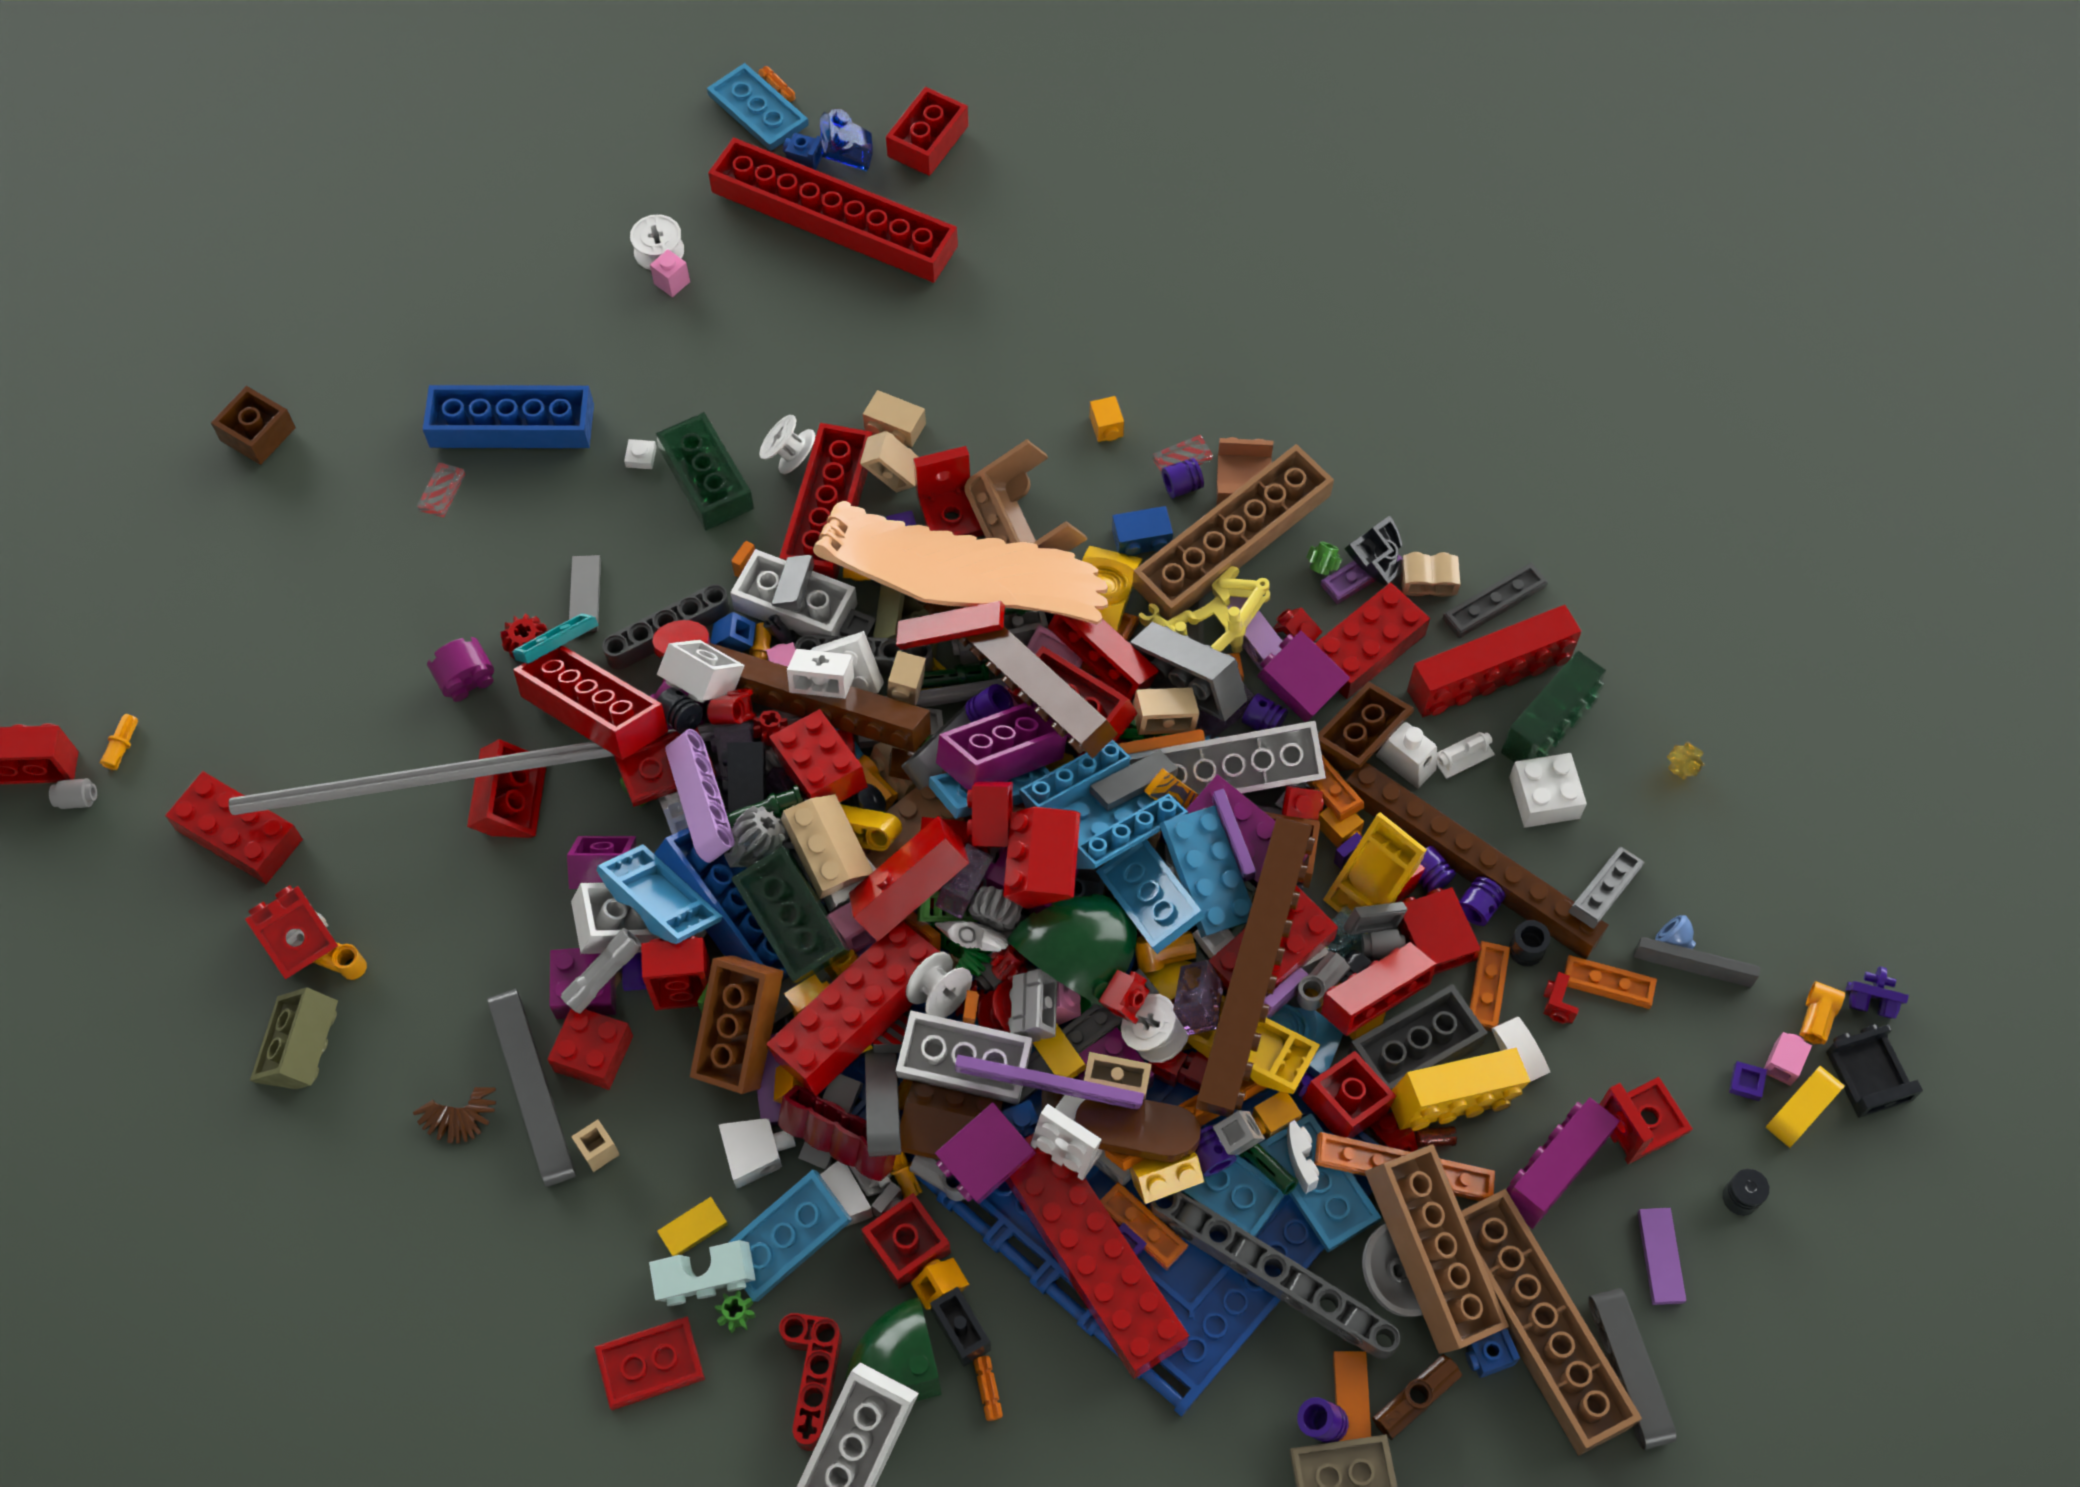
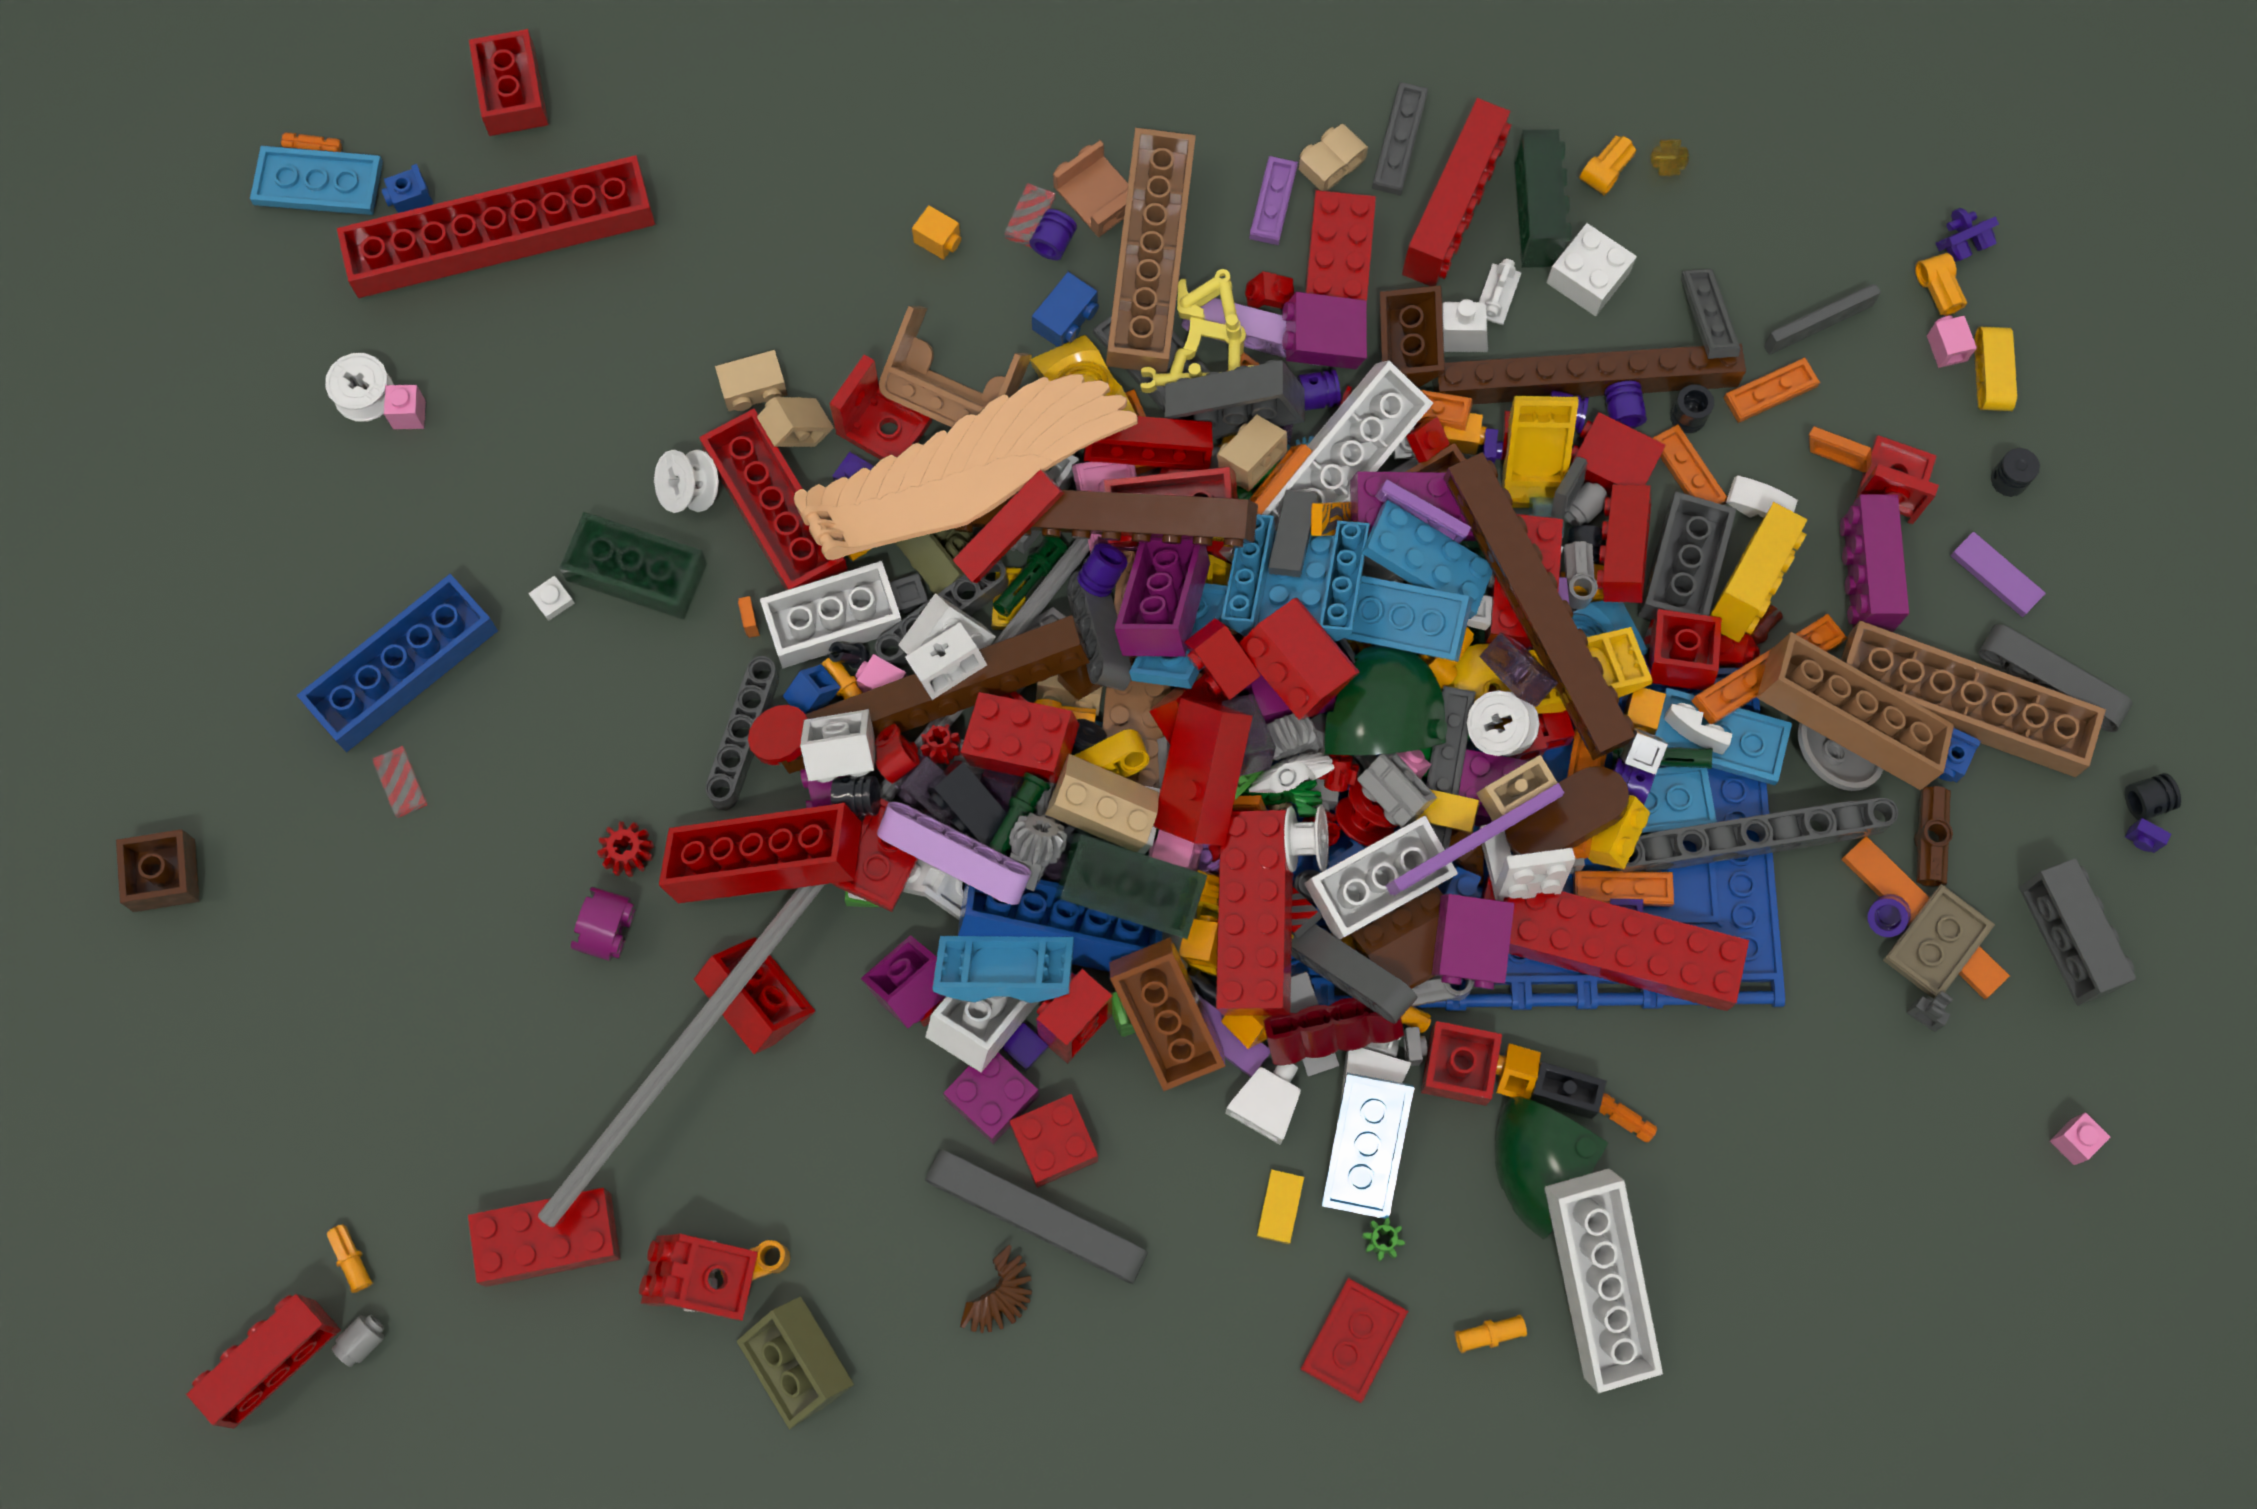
camera: 45 degrees left, 10 degrees up
(555, 638) = (662, 826): teal tile -> none
(585, 586) = (635, 765): light grey tile -> none
(585, 987) = (1015, 1096): light grey axle -> none
(595, 1145) = (1143, 1214): tan brick -> none
(729, 1268) = (1318, 1259): light aqua arch -> none
(742, 1445) = (1490, 1333): none -> light orange pin
(793, 582) = (827, 601): slope -> none
(811, 1382) = (1492, 1238): red beam -> none
(845, 140) = (439, 149): clear blue slope -> none
(906, 678) = (1017, 606): tan brick -> none
(970, 1007) = (1345, 837): orange tile -> none
(1125, 995) = (1461, 717): red brick -> none
(1324, 558) = (1236, 212): bright green gear -> none
(1378, 551) = (1274, 171): black brick -> none
(1555, 1008) = (1747, 435): red bracket -> none
(1616, 1060) = (1840, 449): none -> orange tile
(1625, 732) = (1605, 169): none -> light orange piece
(1677, 932) = (1787, 307): medium blue brick -> none
(1747, 1081) = (1939, 383): dark purple plate -> none
(1871, 1071) = (2015, 300): black panel -> none

